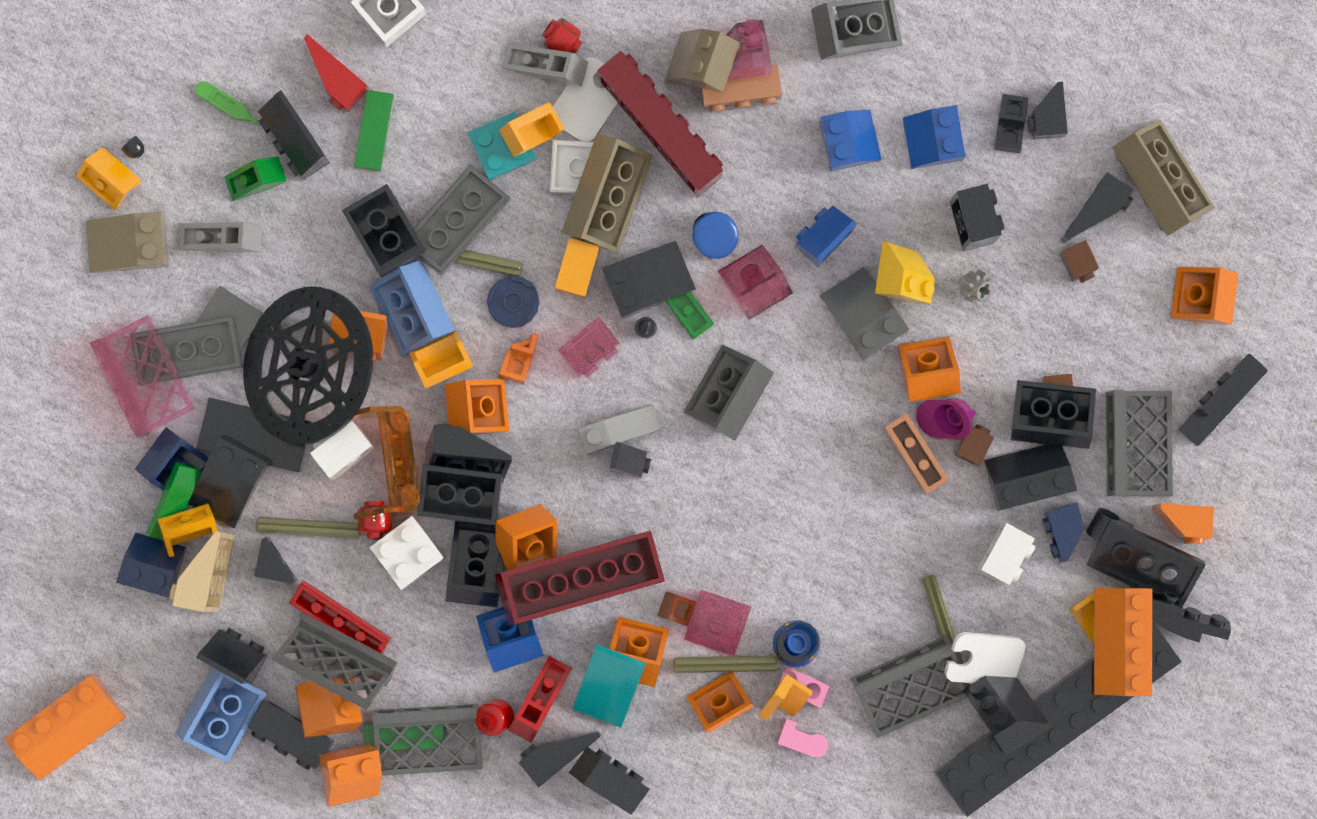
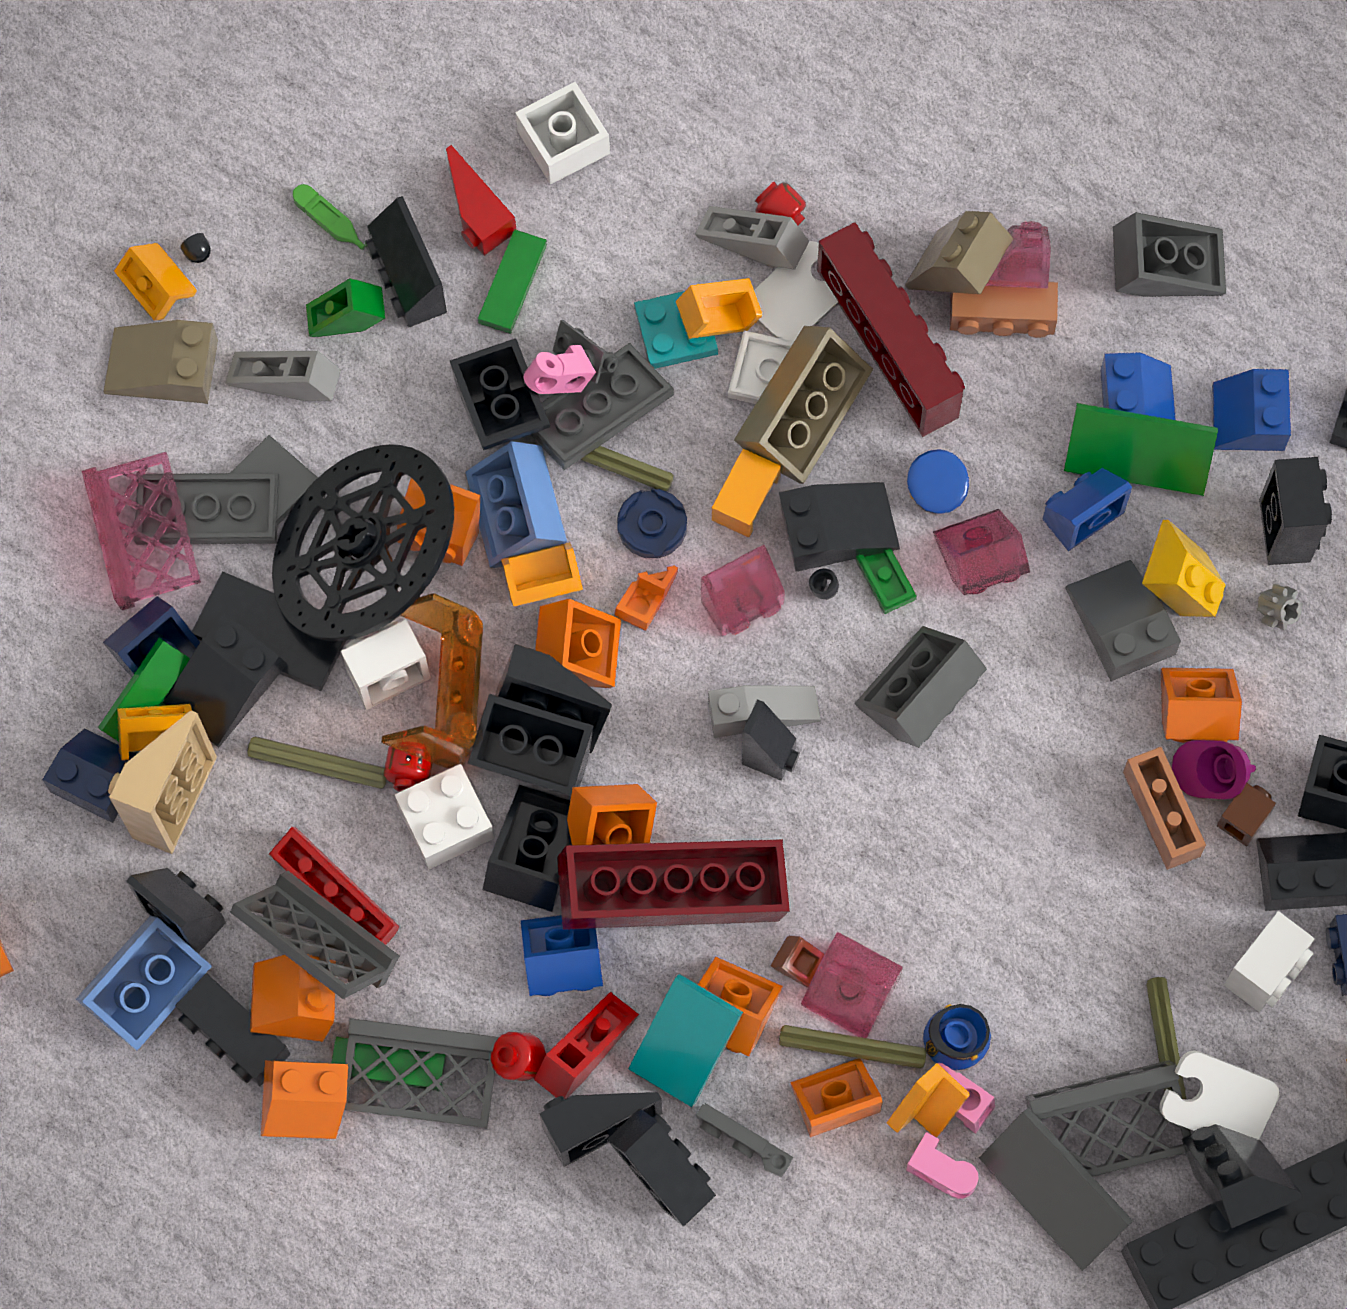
camera: 15 degrees right, 15 degrees down
(272, 565) = (256, 802): black slope -> none
(427, 206) = (559, 372): none -> bright pink leg
(434, 179) = (600, 359): none -> dark grey hinge
(662, 745) = (746, 1141): none -> dark grey hinge
(858, 184) = (1141, 448): none -> green tile
(882, 741) = (1055, 1189): none -> dark grey tile

